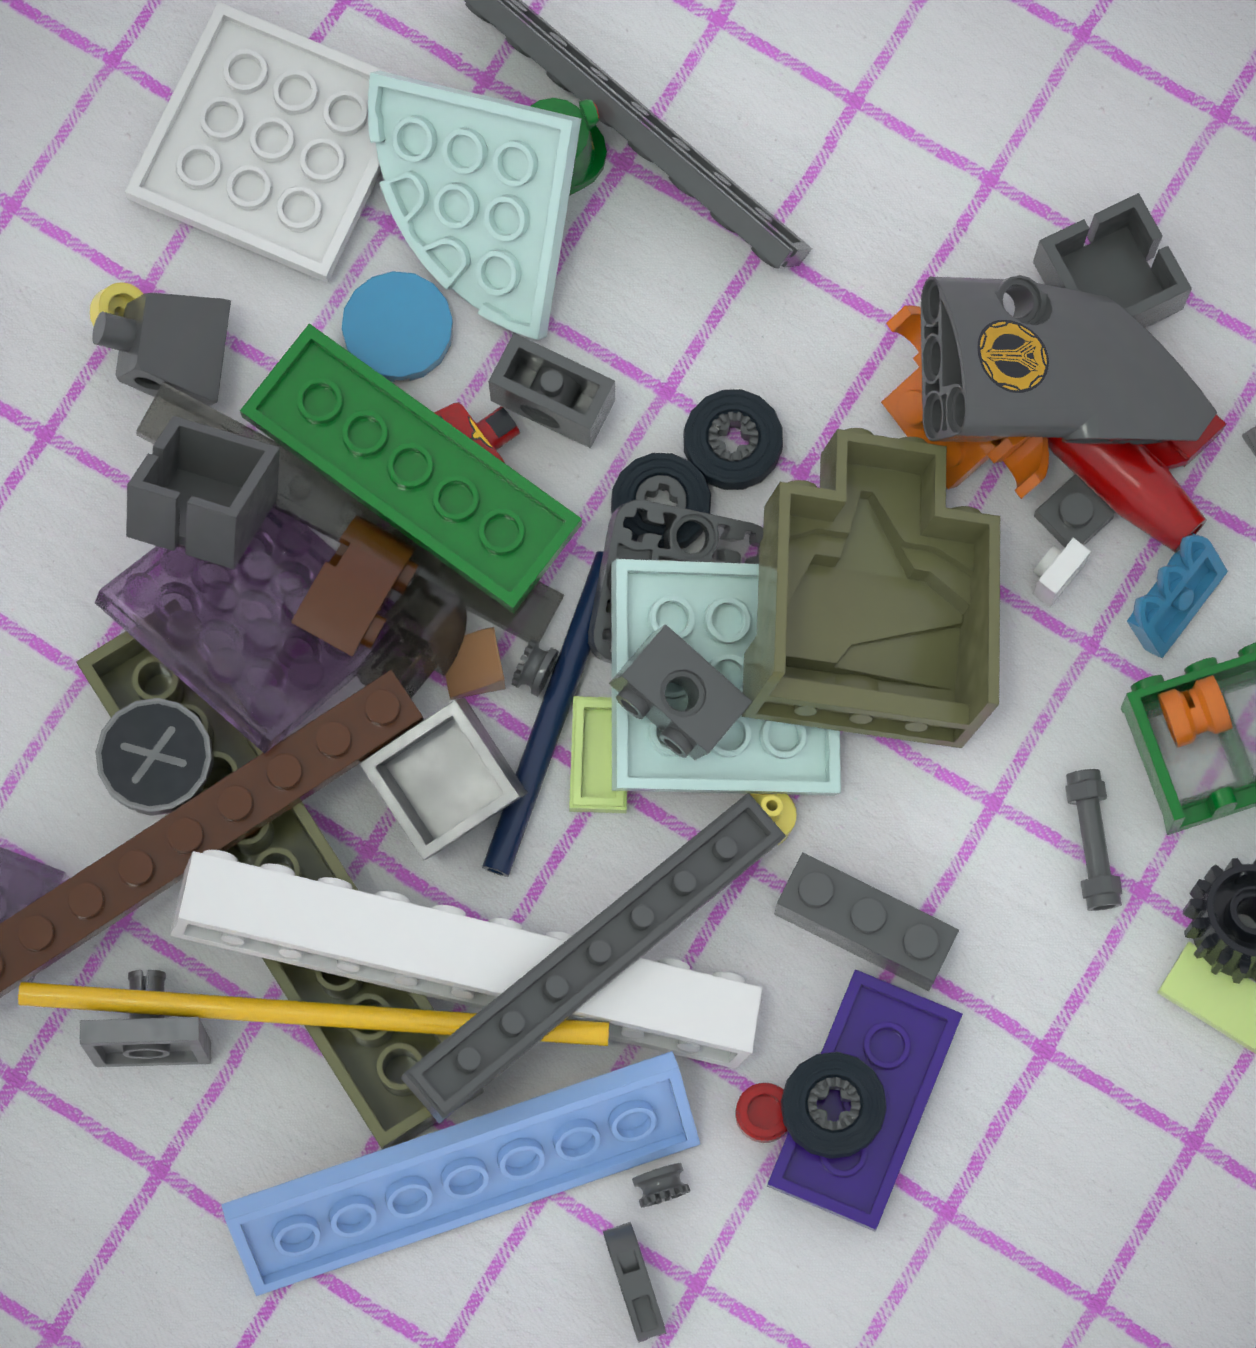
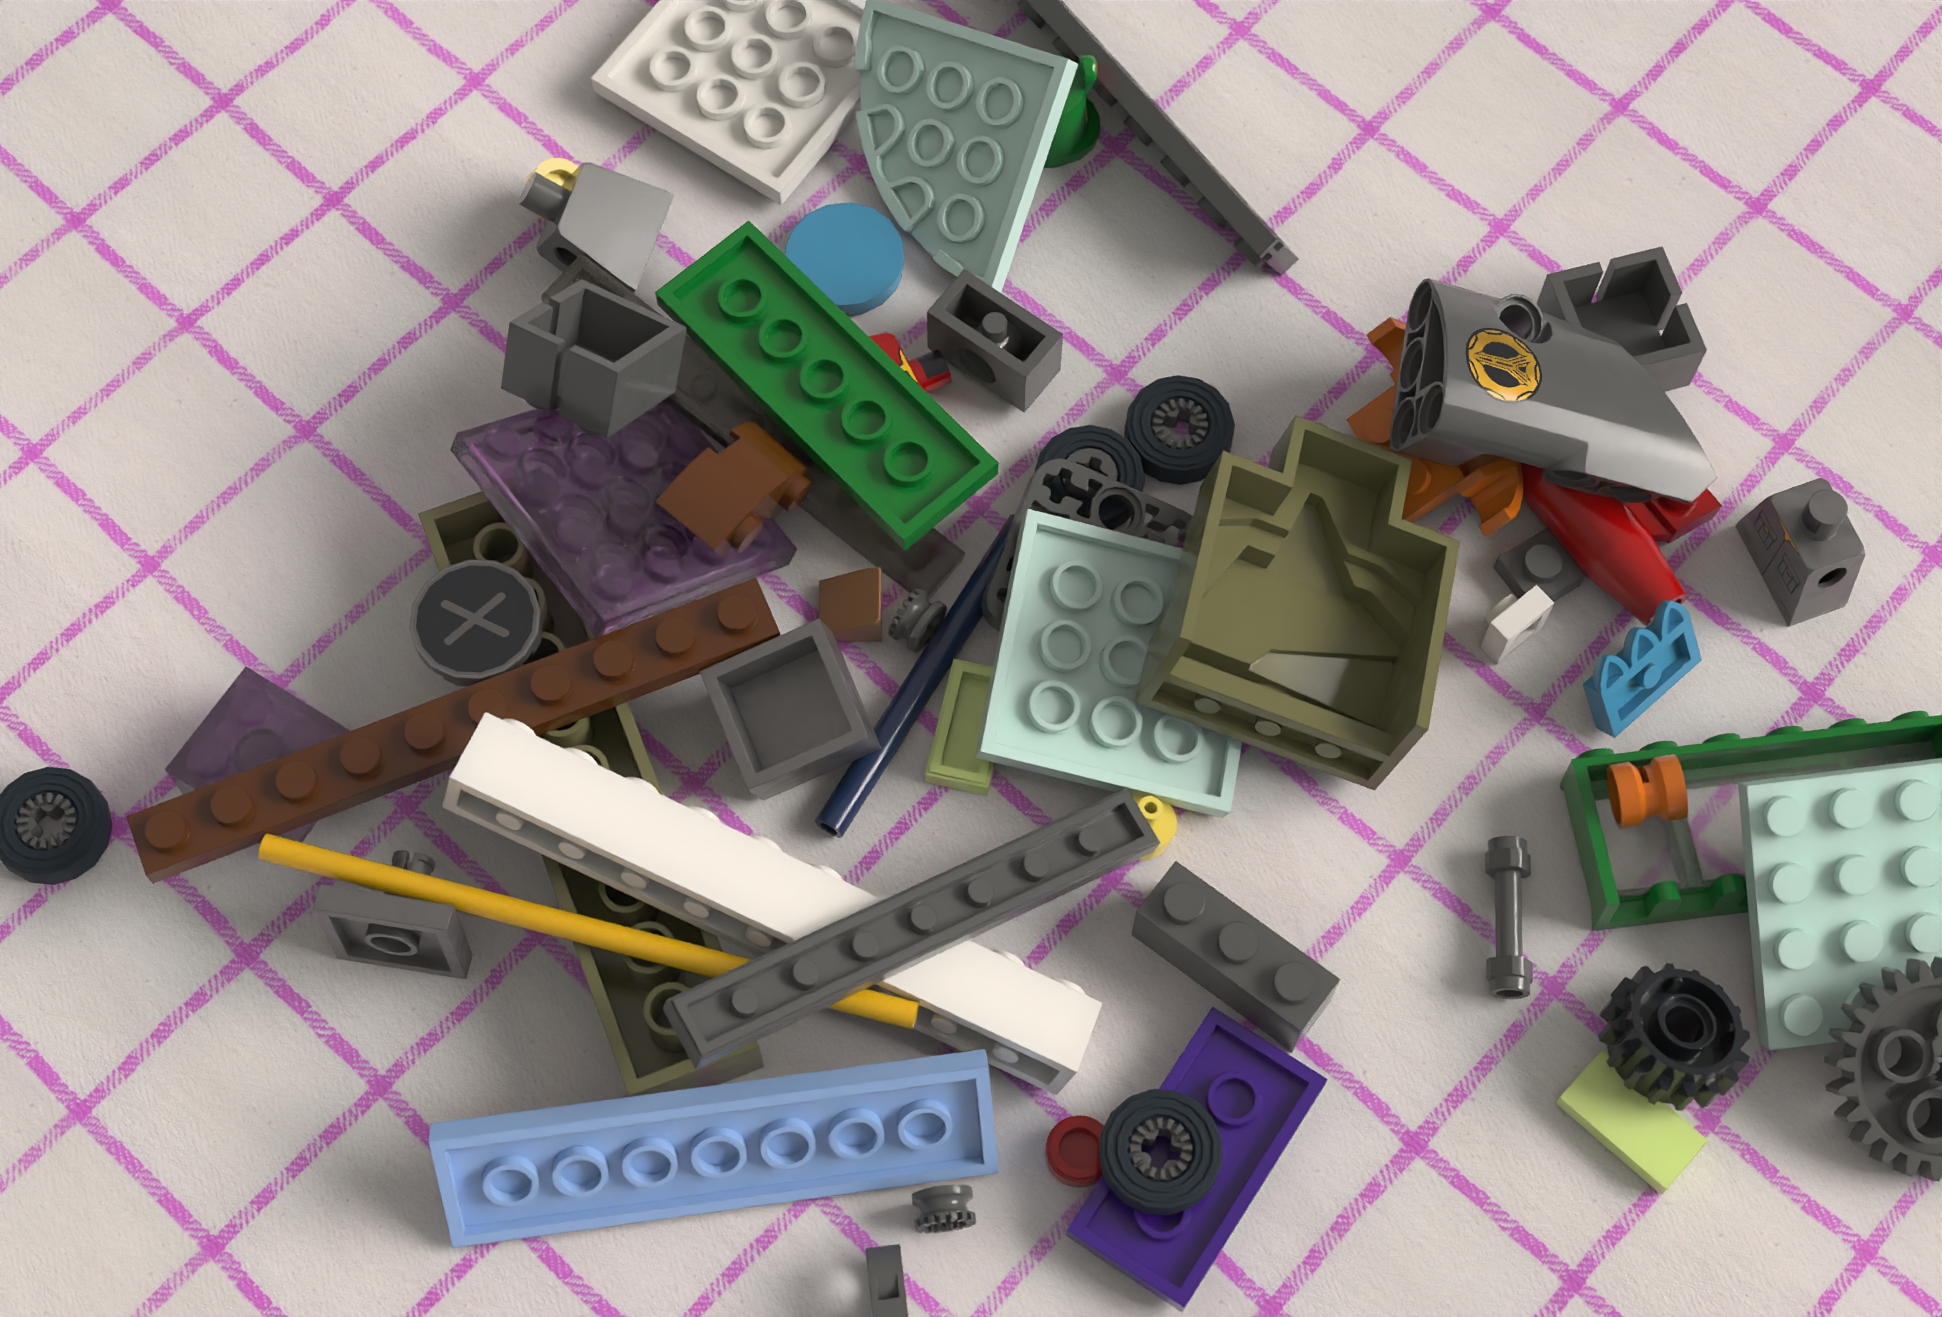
camera: 10 degrees right, 10 degrees down
(422, 636) = (803, 559): clear smoke brick -> none
(712, 698) = (1069, 623): dark grey brick -> none

